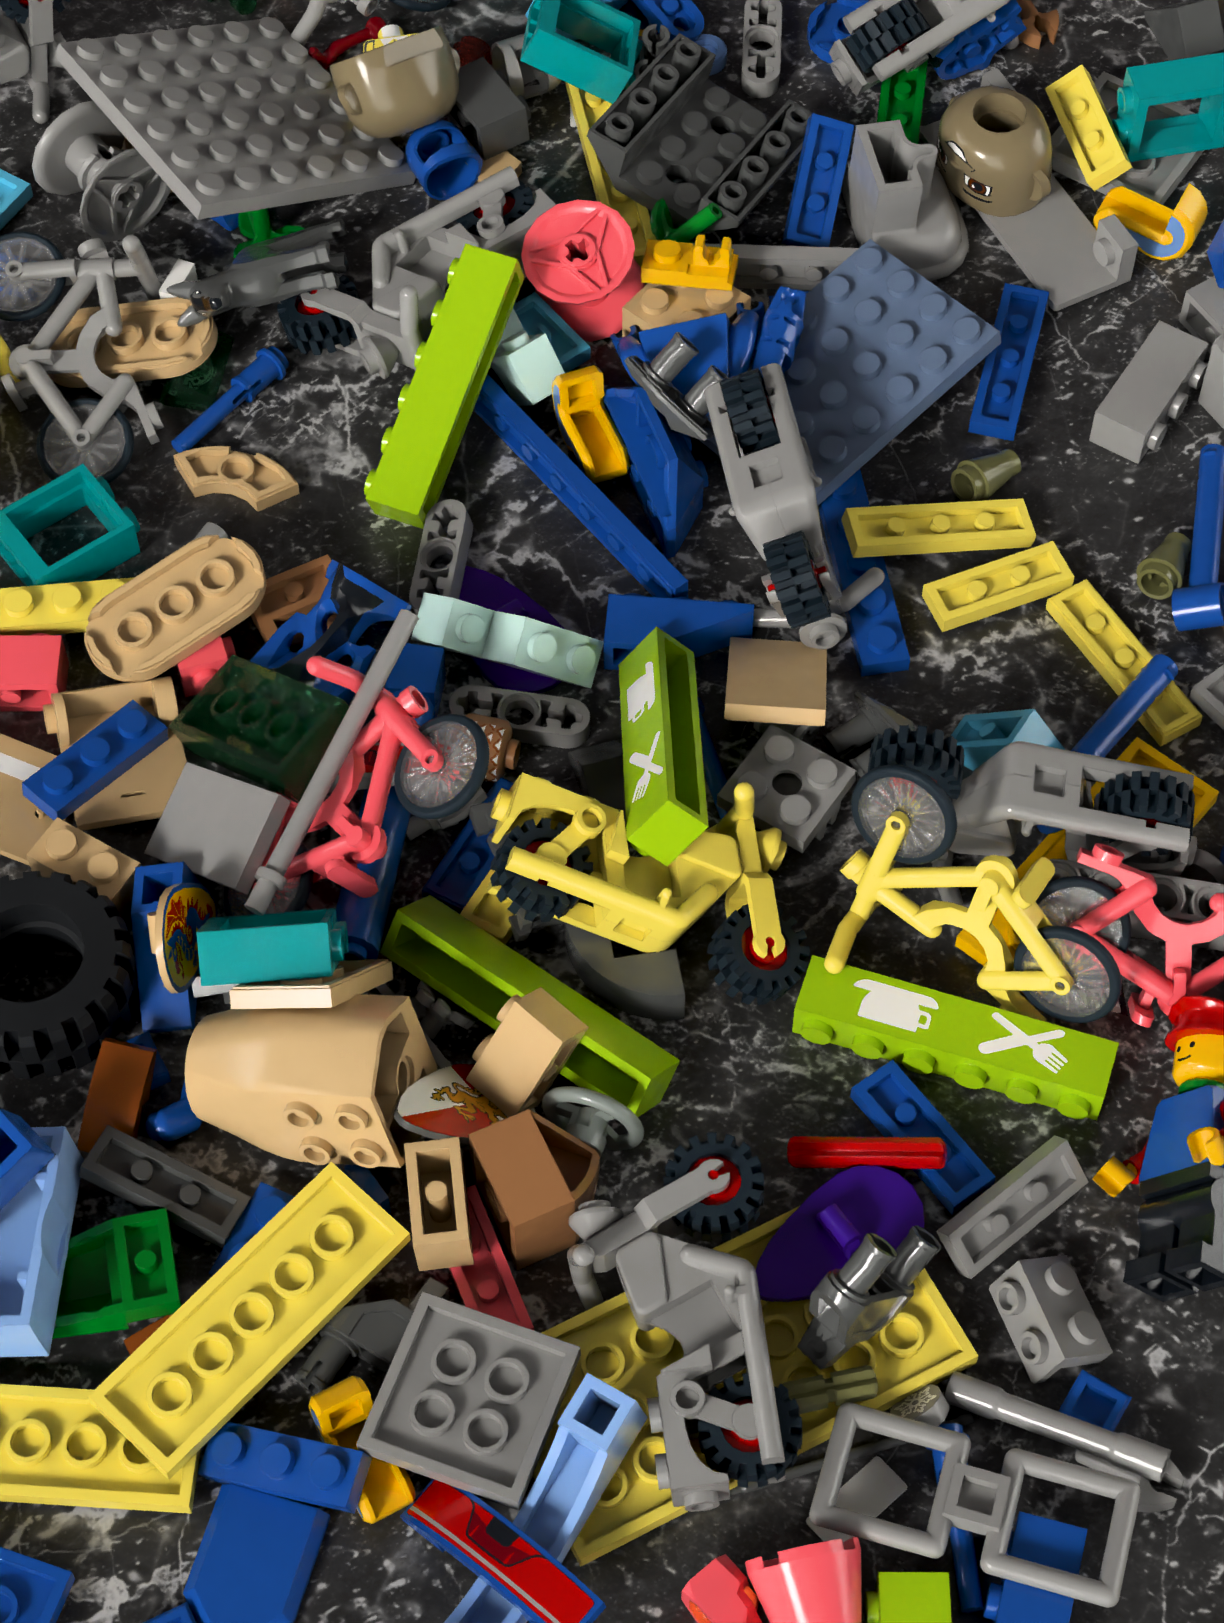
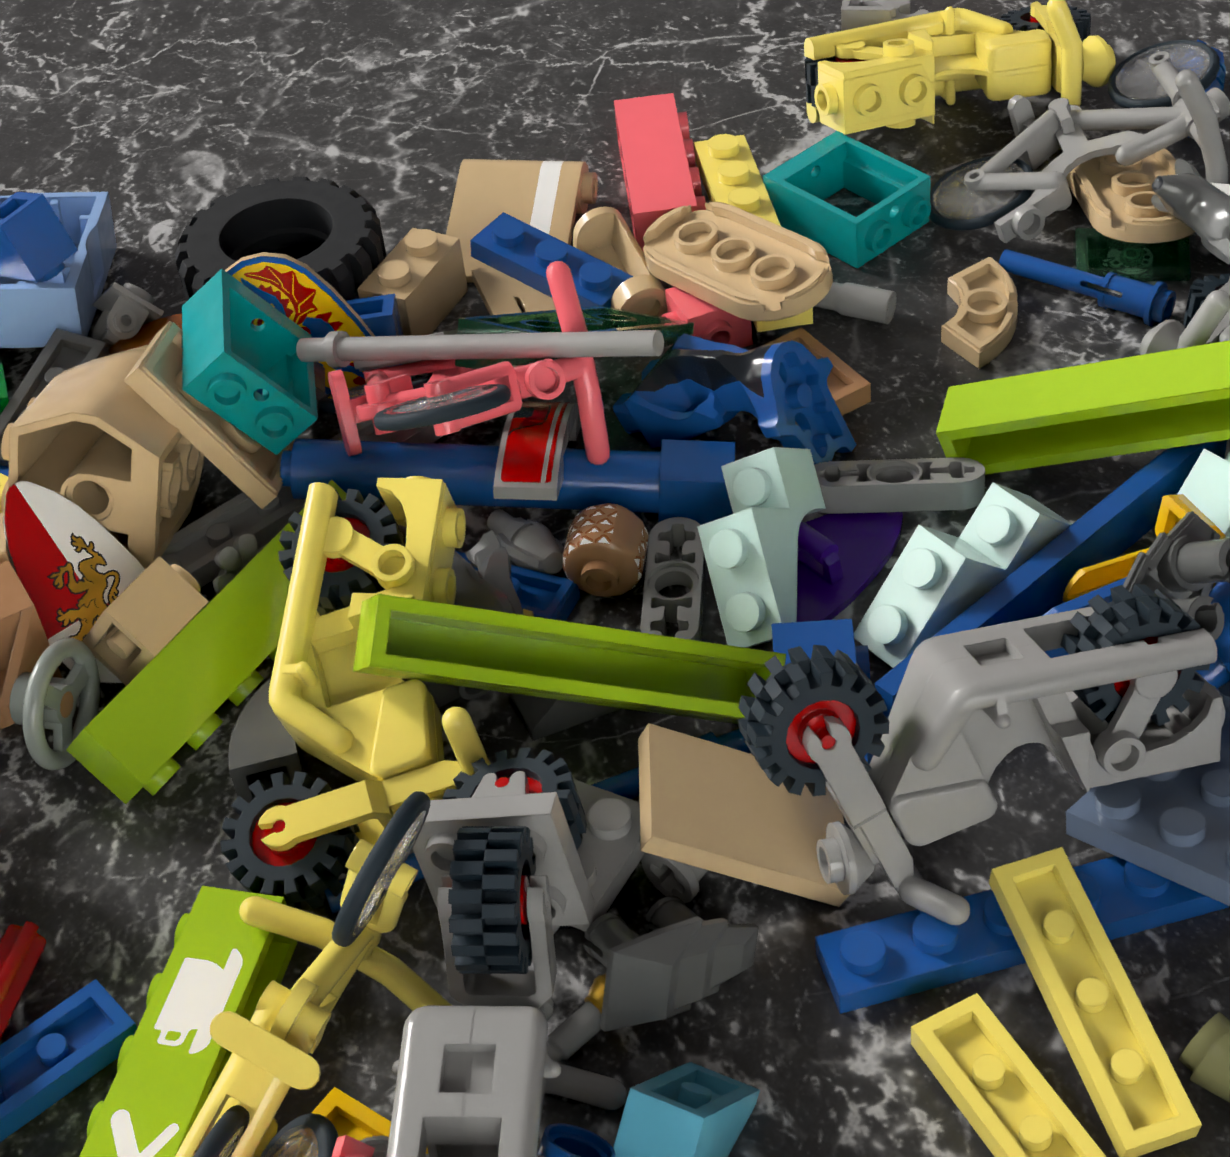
camera: 90 degrees right, 15 degrees down
(81, 1100) = (123, 313): none -> light grey hinge
(564, 528) = (947, 573): none -> light aqua arch
(813, 784) = (516, 793): none -> light grey plate

